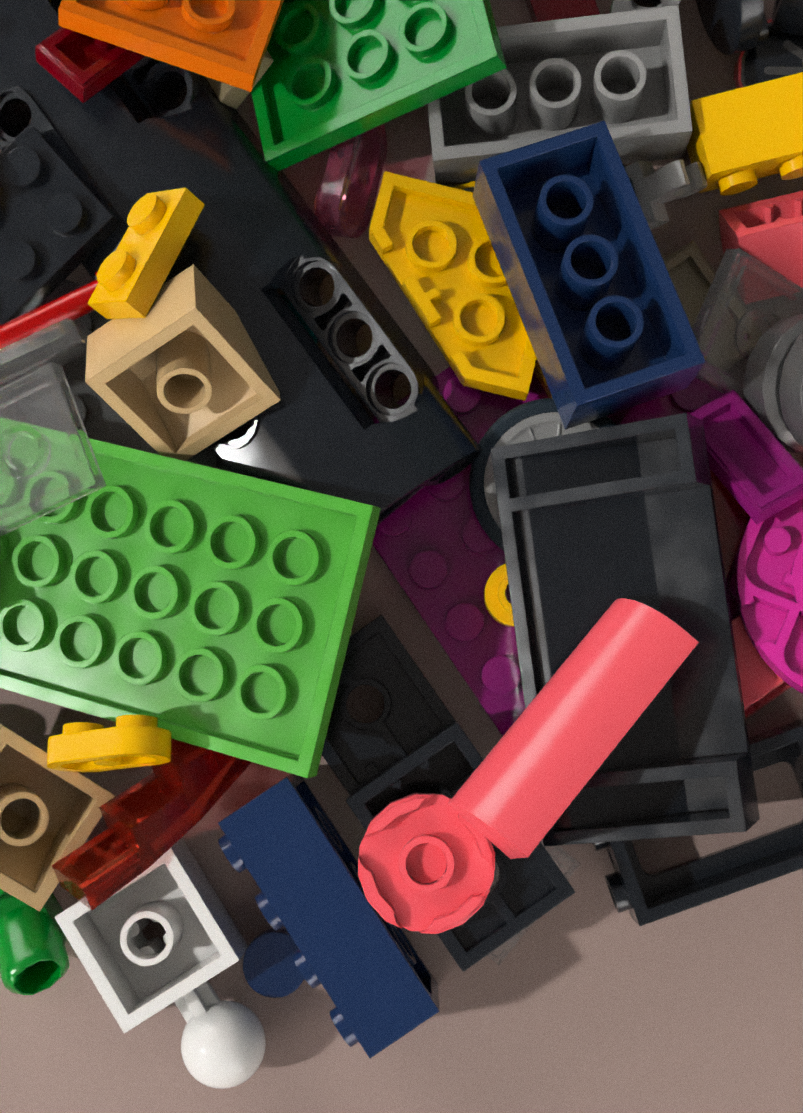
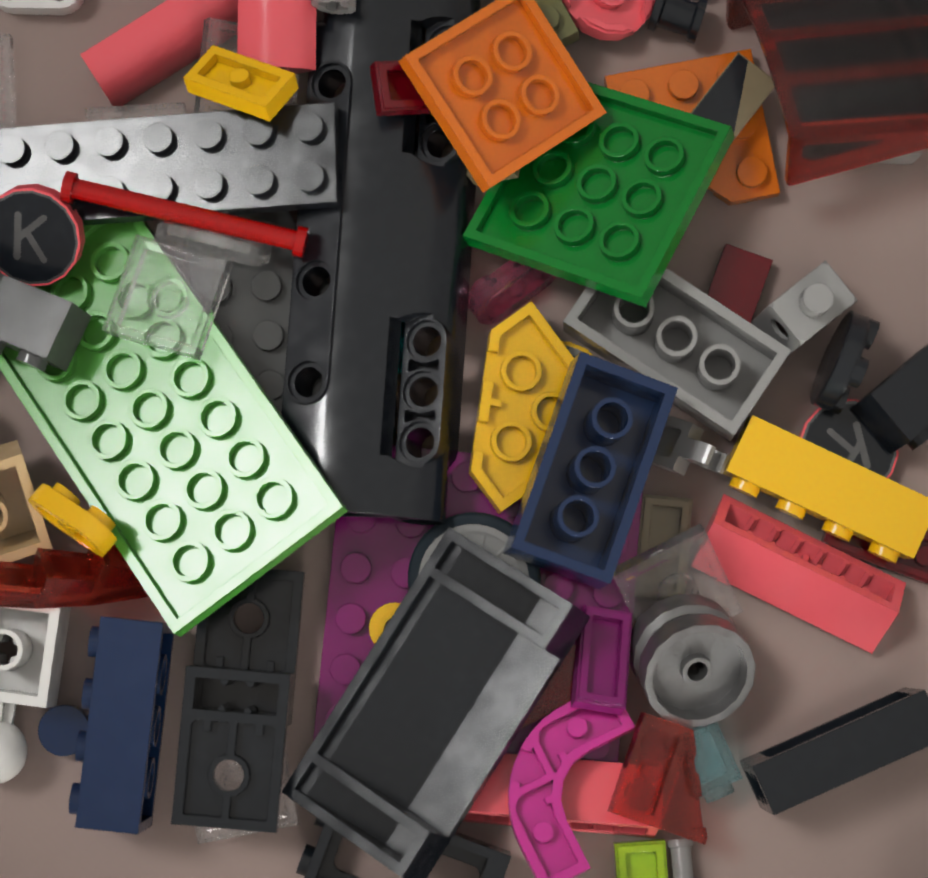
camera: 30 degrees right, 0 degrees up
(143, 259) = (335, 243): yellow plate -> none
(181, 370) = (300, 327): tan slope -> none
(425, 864) = (202, 741): coral tile -> none
(572, 726) = (354, 732): coral brick -> none

